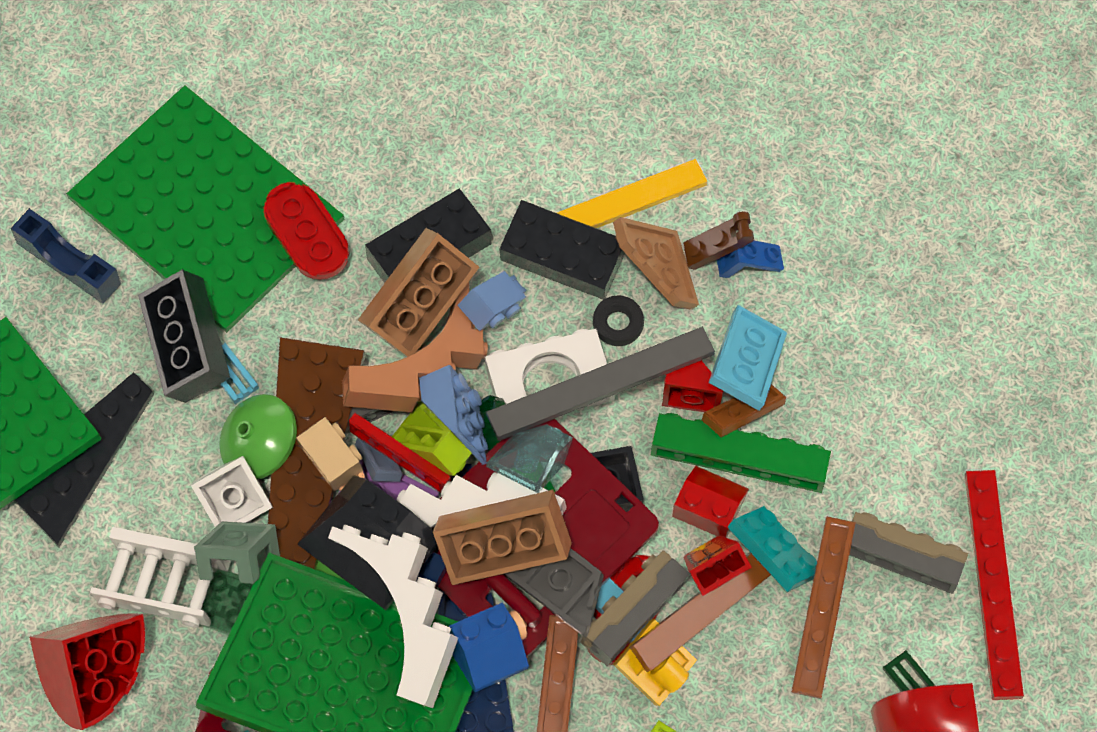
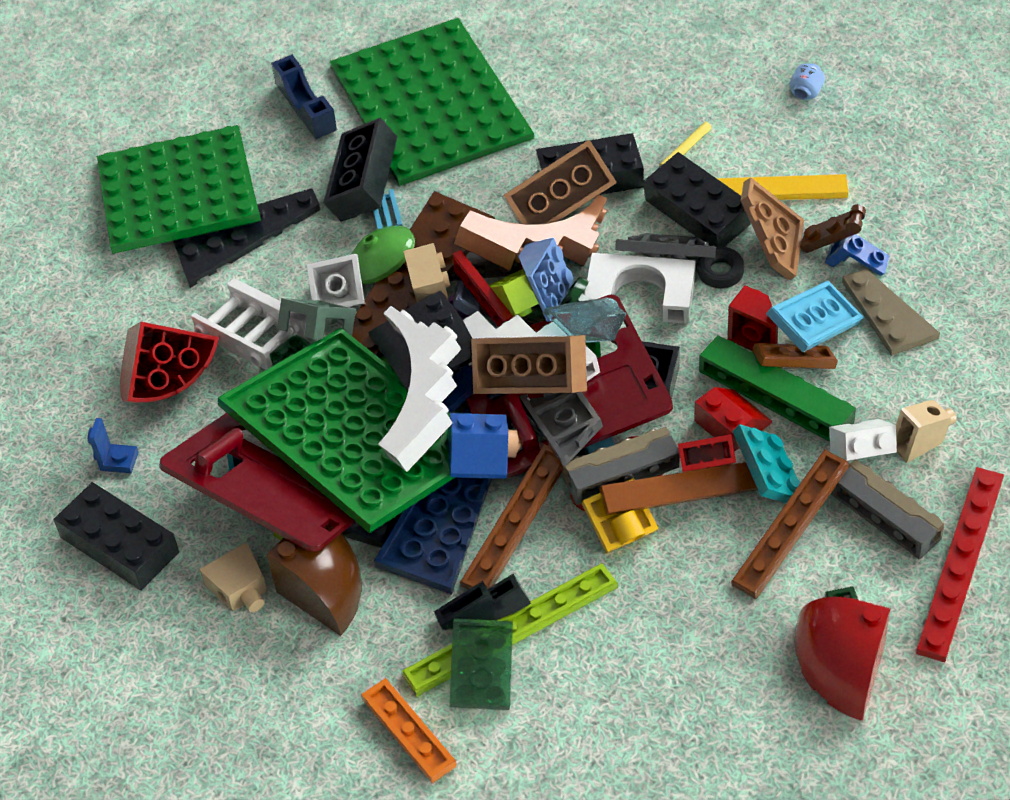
camera: 30 degrees right, 15 degrees down
(306, 230) = (496, 131): red tile -> none
(493, 301) = (619, 215): medium blue brick -> none
(512, 177) = (690, 141): none -> light yellow bar
(558, 316) = (659, 244): none -> dark grey wing
(600, 383) = (676, 287): dark grey tile -> none
(606, 51) = (807, 81): none -> light blue head
(809, 319) = (890, 317): none -> dark tan wing
(853, 486) = (863, 439): none -> white brick
(905, 444) = (921, 428): none -> tan torso

